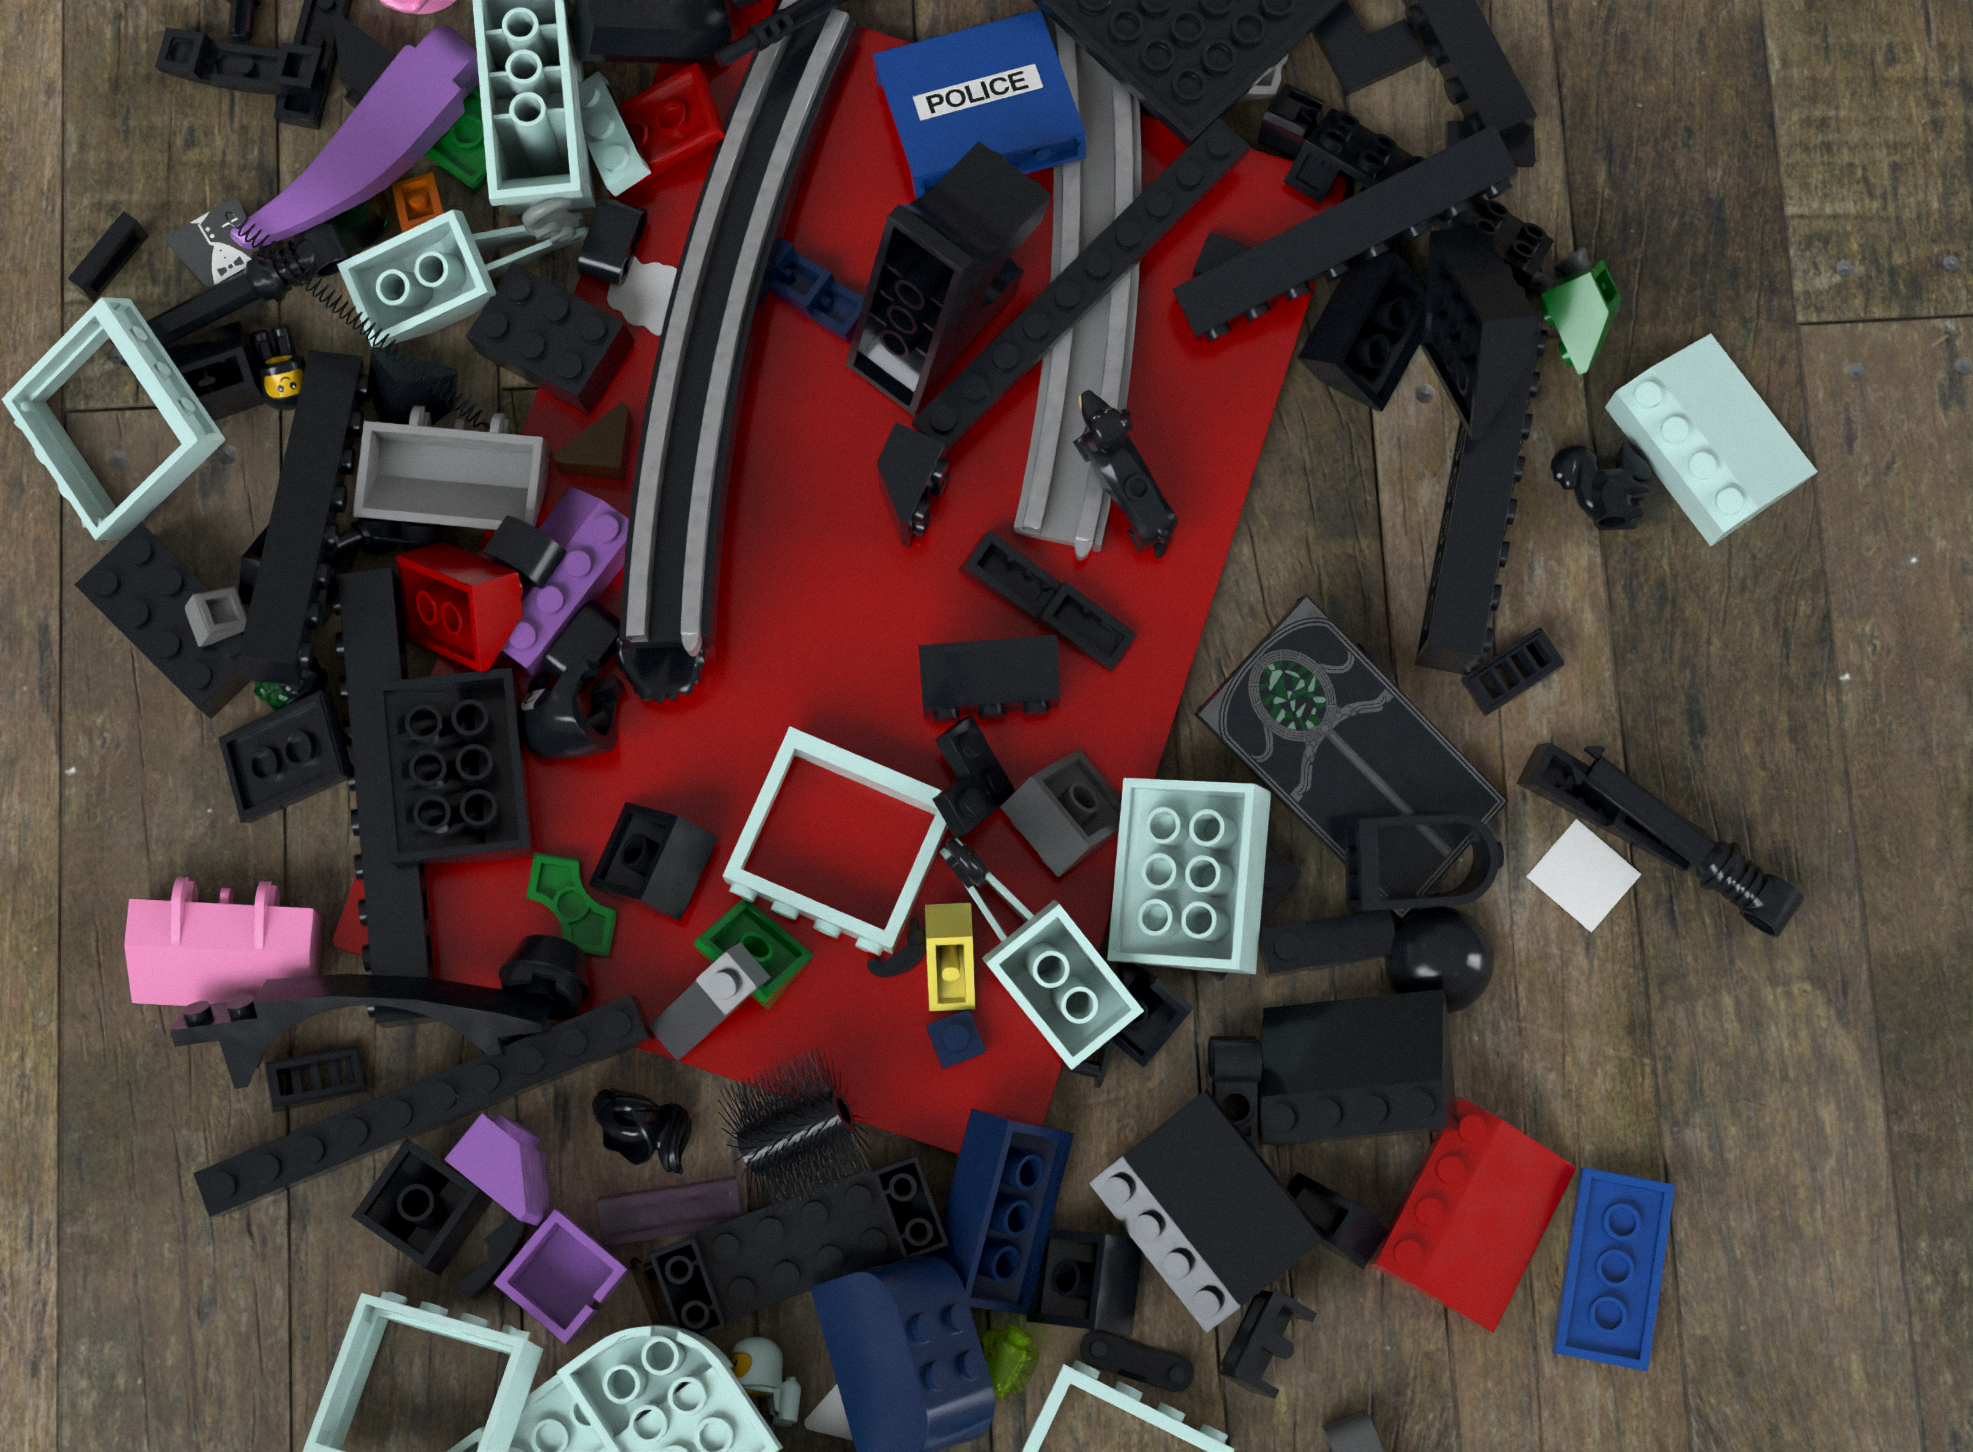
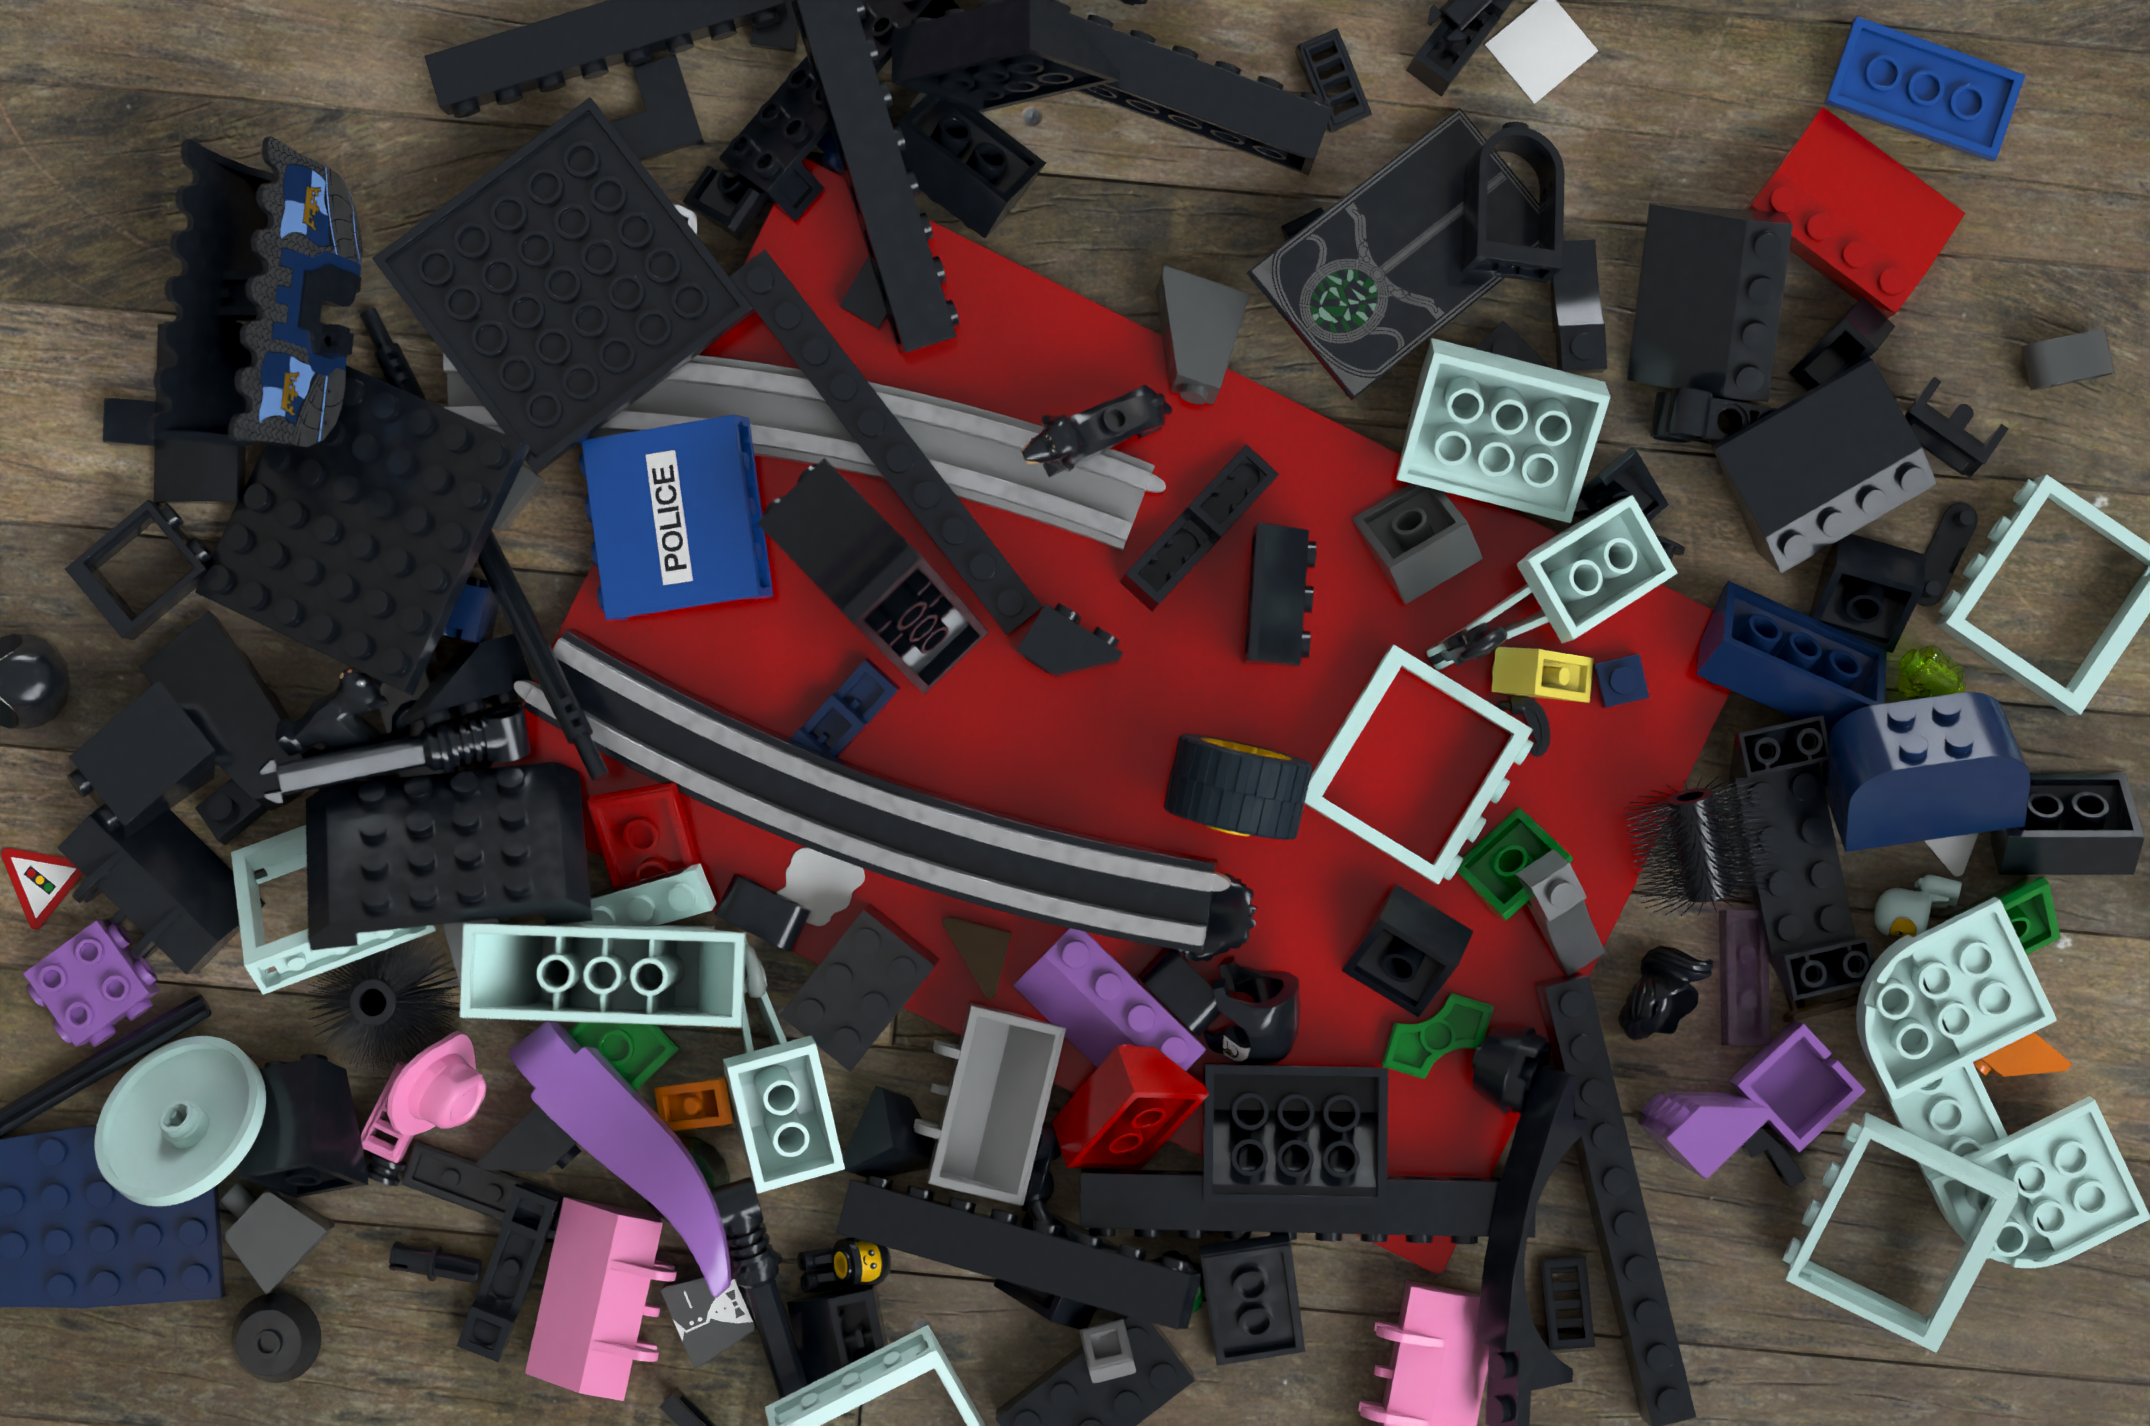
camera: 80 degrees left, 10 degrees up
(220, 145) = (597, 1298): none -> bright pink piece
(361, 325) = (820, 1184): black piece -> none
(422, 1207) = (1712, 1217): black slope -> none
(525, 551) = (1090, 1038): black brick -> none
(791, 660) = (1237, 787): none -> black wheel
(980, 778) = (1378, 620): black plate -> none
(1239, 573) = (1197, 332): none -> dark grey slope
(1441, 951) = (1607, 200): black piece -> none

